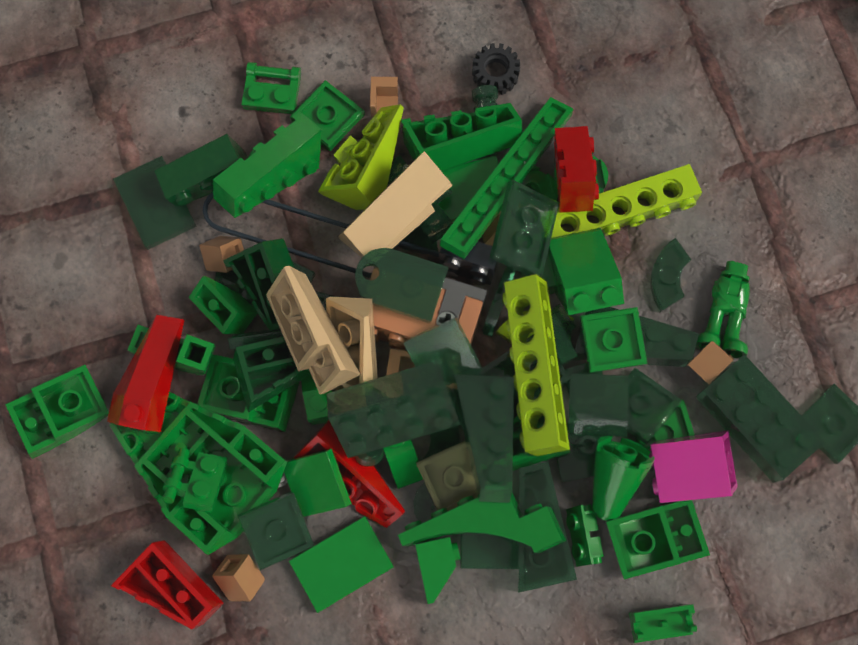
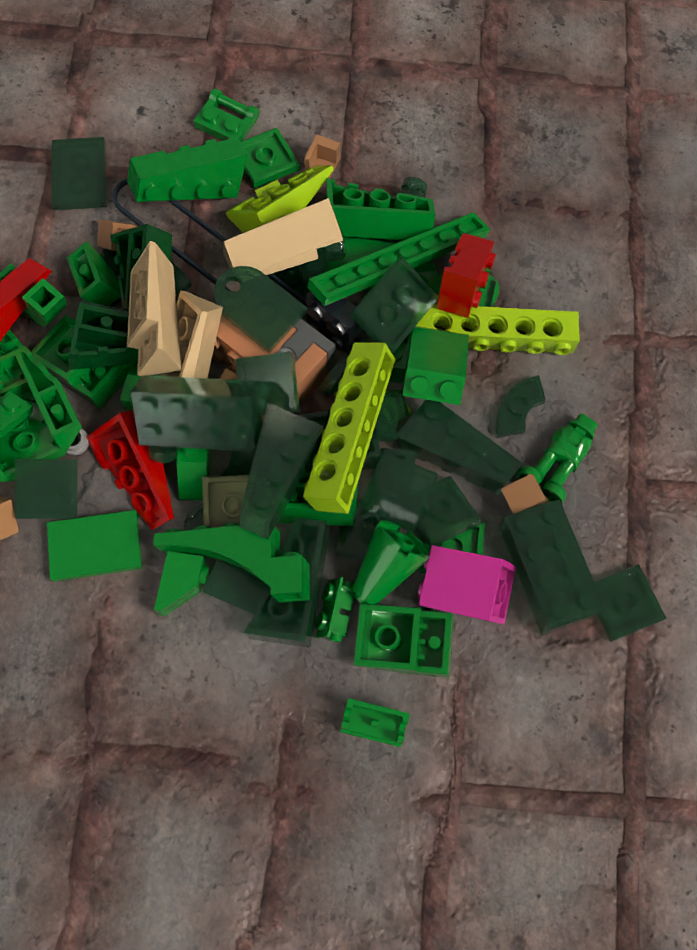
camera: 15 degrees right, 5 degrees down
(193, 173) = (110, 155): dark green wedge -> none
(317, 483) = (102, 459): green tile -> none
(496, 55) = (437, 160): black tyre -> none
(613, 340) = (436, 436): green tile -> none

